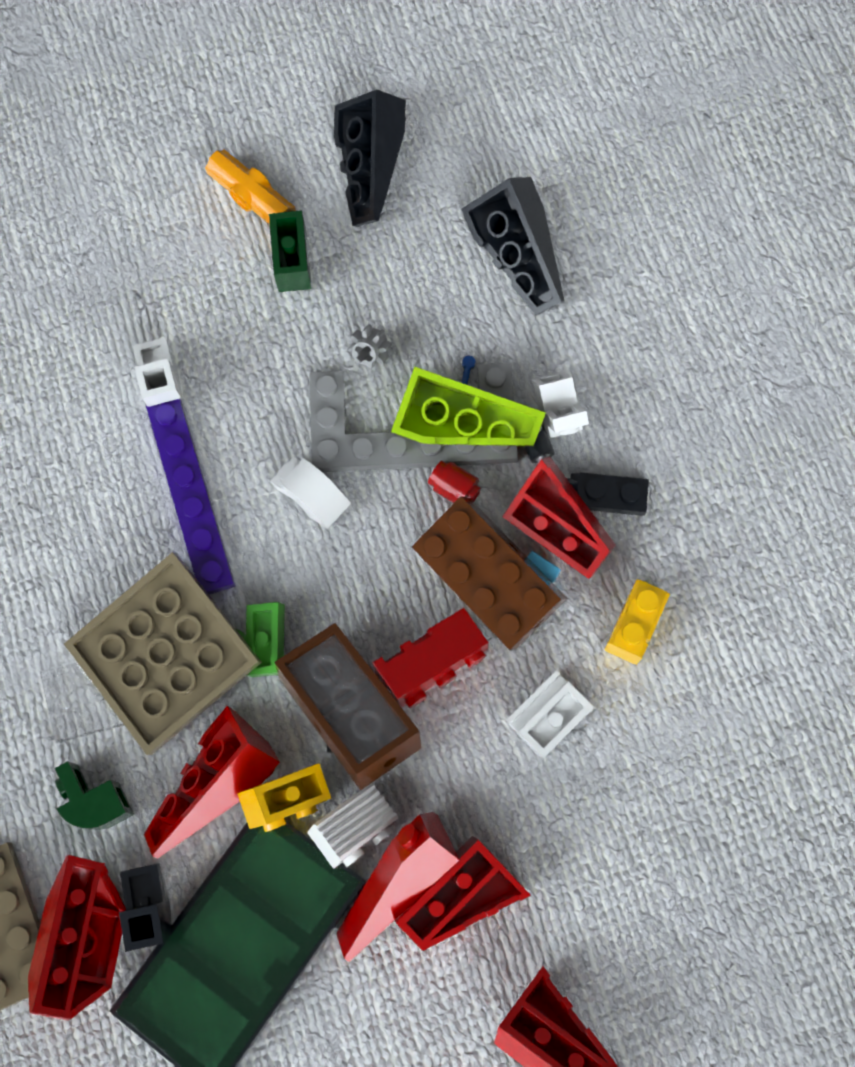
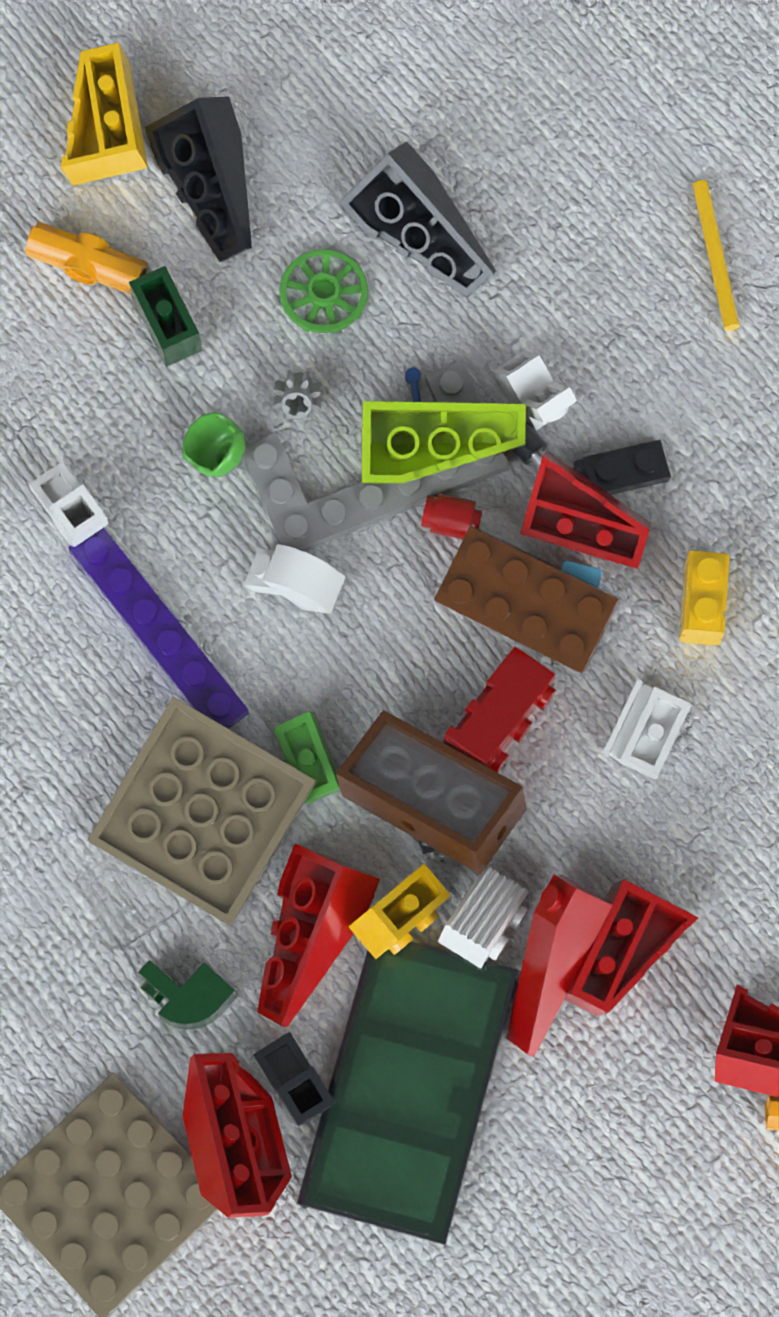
camera: 25 degrees left, 0 degrees up
(288, 363) = (214, 444): none -> bright green hair
(305, 89) = (105, 119): none -> yellow wedge
(424, 275) = (323, 292): none -> bright green wheel
(748, 347) = (715, 255): none -> yellow bar

